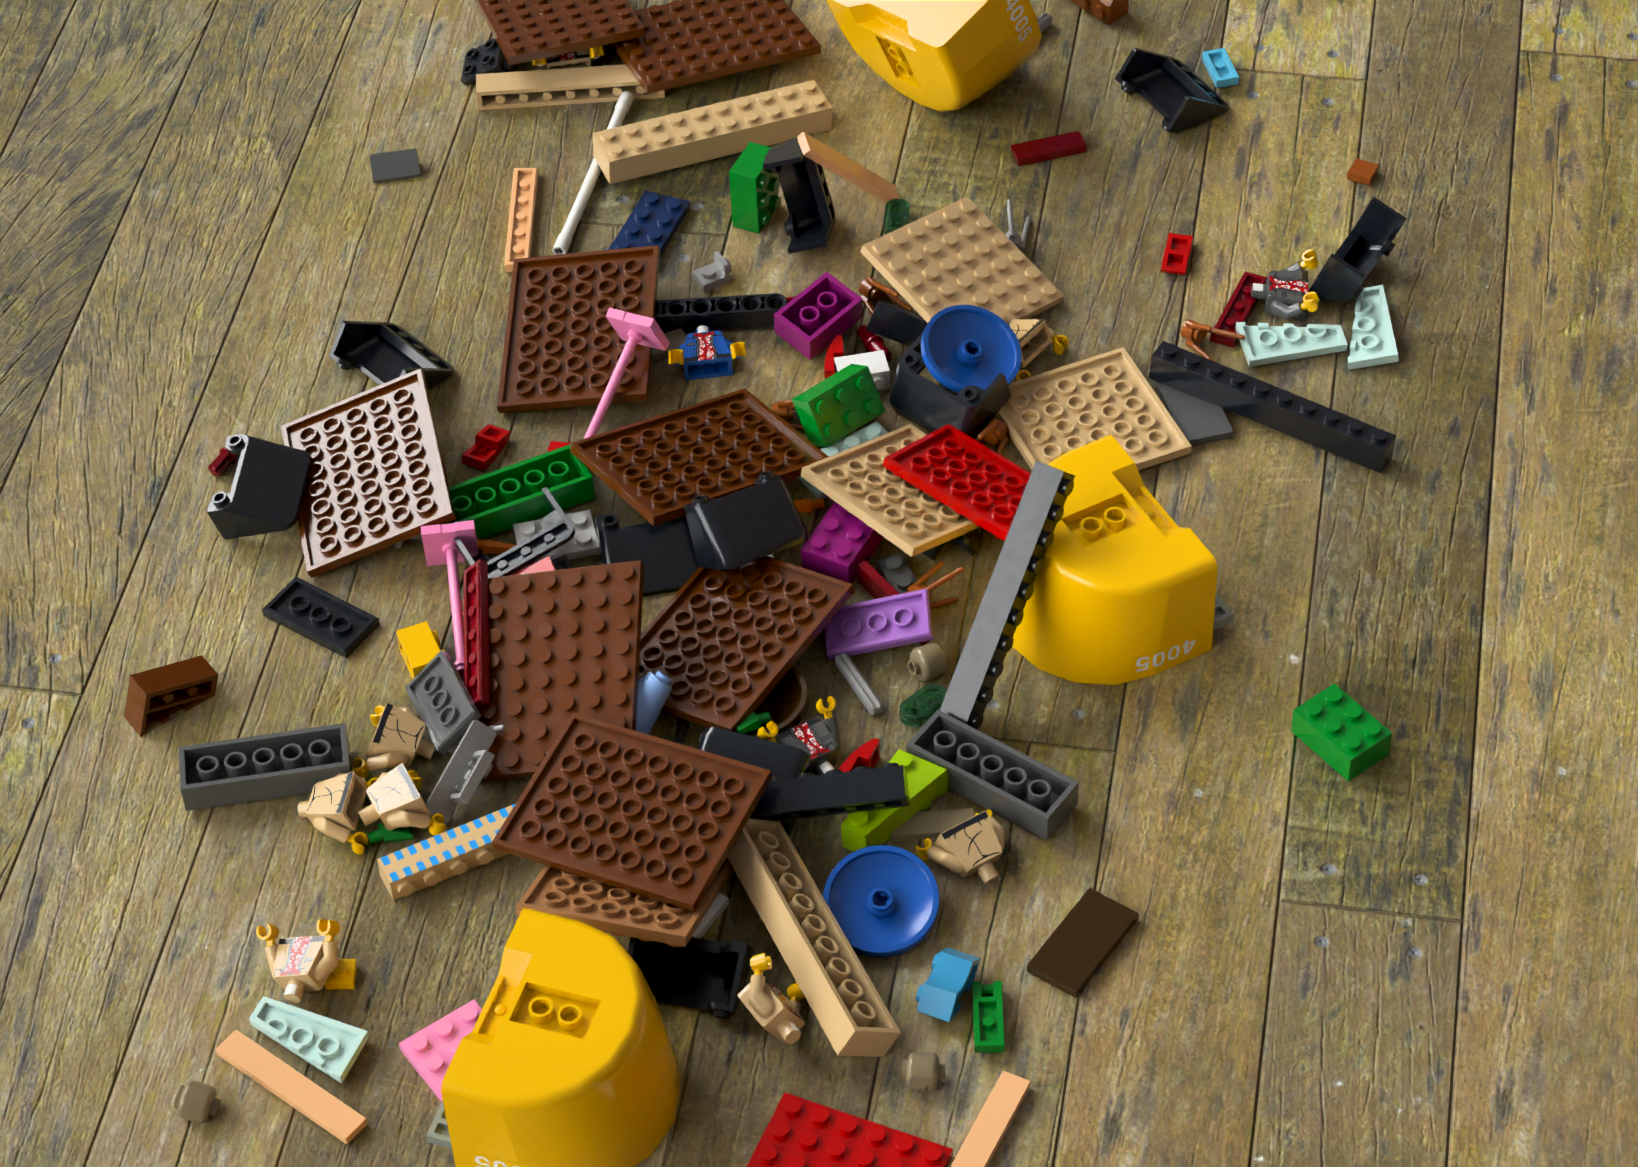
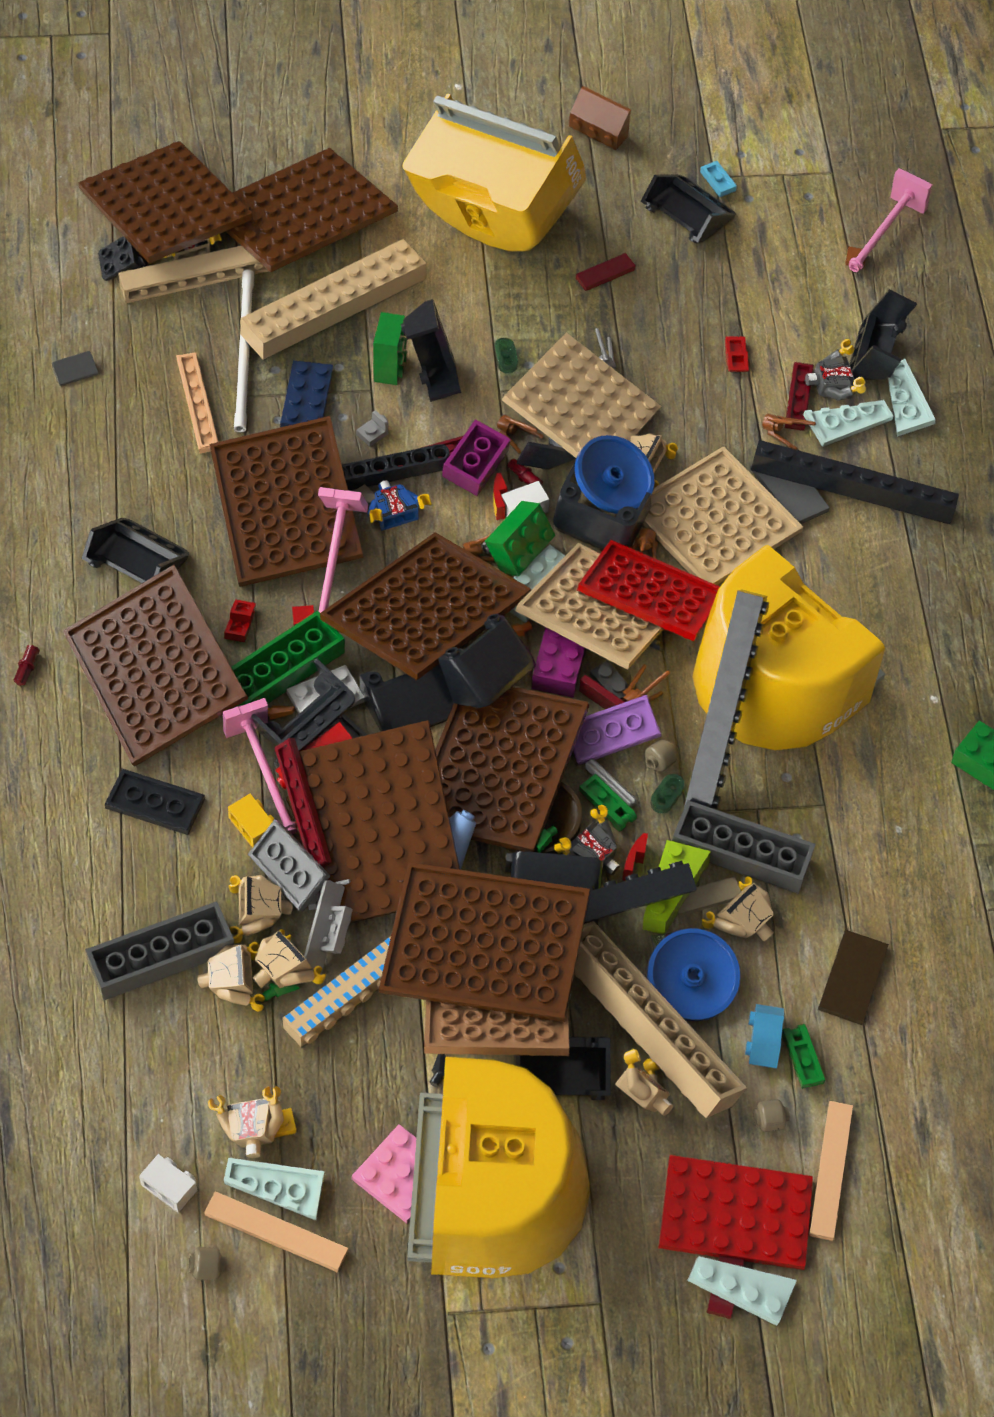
camera: 20 degrees left, 10 degrees up
(167, 689) = (53, 895): reddish brown wedge -> none
(186, 1009) = (168, 1182): none -> white brick
(264, 488) = (74, 693): black windscreen -> none
(847, 168) = (465, 323): light nougat tile -> none
(848, 702) = (601, 794): none -> green plate
(1447, 106) = (907, 191): none -> bright pink tile

